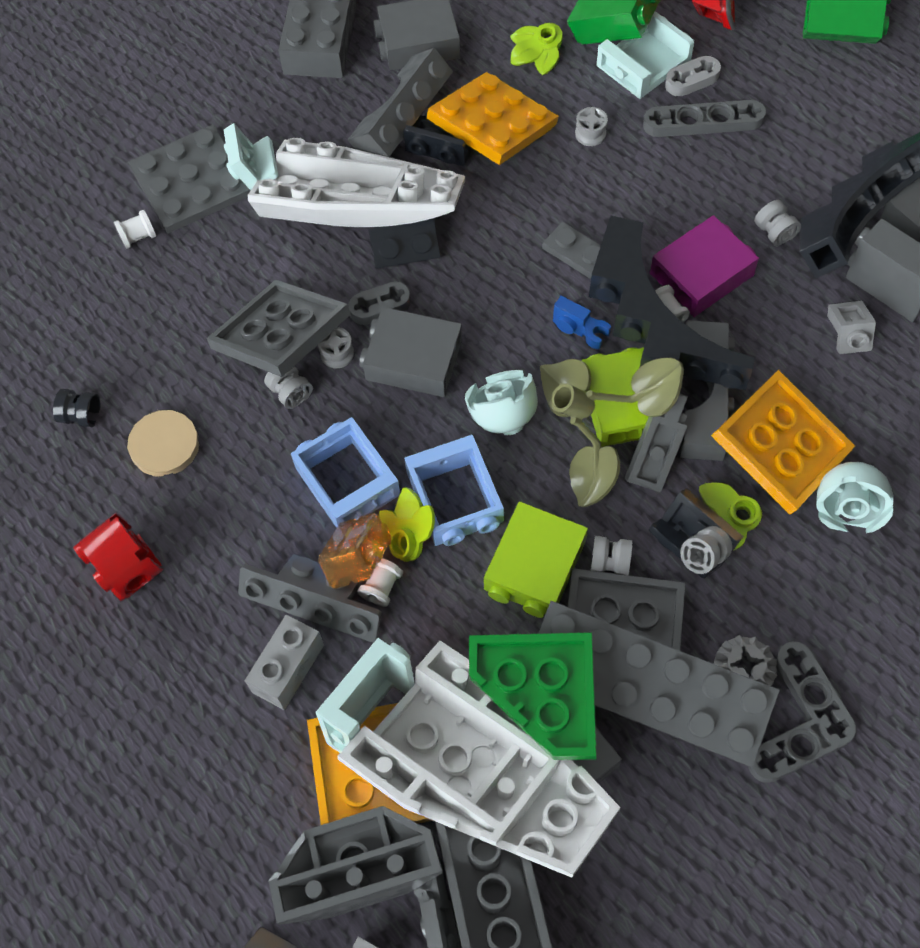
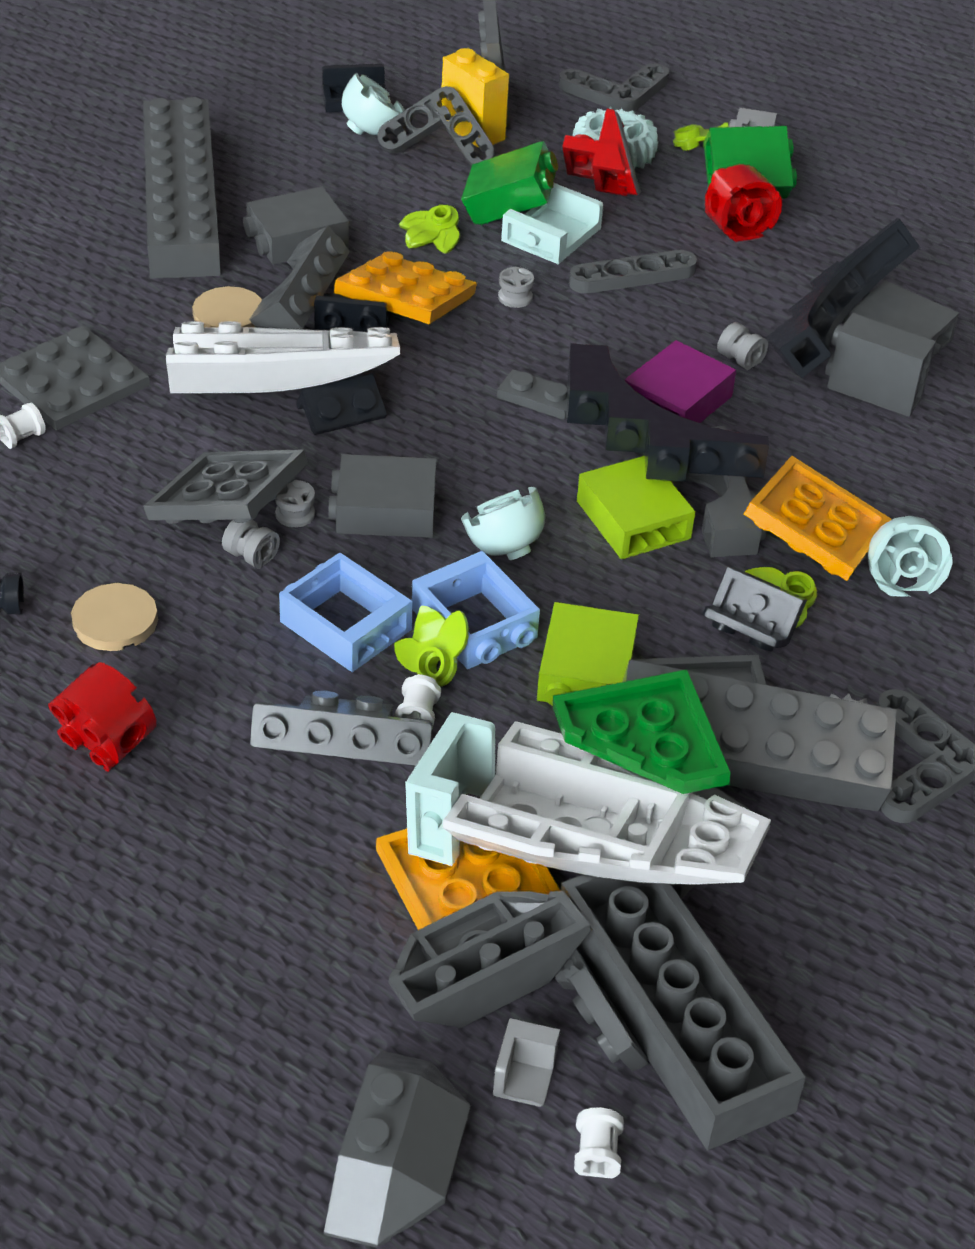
camera: 20 degrees left, 20 degrees down
(249, 160) = (146, 350): light aqua bracket -> none
(284, 662) = (332, 789): light grey brick -> none
(335, 119) = (225, 305): none -> tan tile
(354, 550) = (387, 665): clear orange brick -> none
(376, 299) = (328, 458): dark grey beam -> none
(567, 394) = (567, 503): olive plant -> none
(576, 319) = (558, 448): blue plate -> none
(620, 555) = (670, 642): light grey wheel -> none
(658, 447) = (688, 533): dark grey hinge -> none
(692, 75) = (608, 238): light grey beam -> none
(706, 549) = (781, 613): light grey wheel -> none
(826, 53) = (745, 199): none -> red brick
(853, 325) = (853, 421): light grey bracket -> none

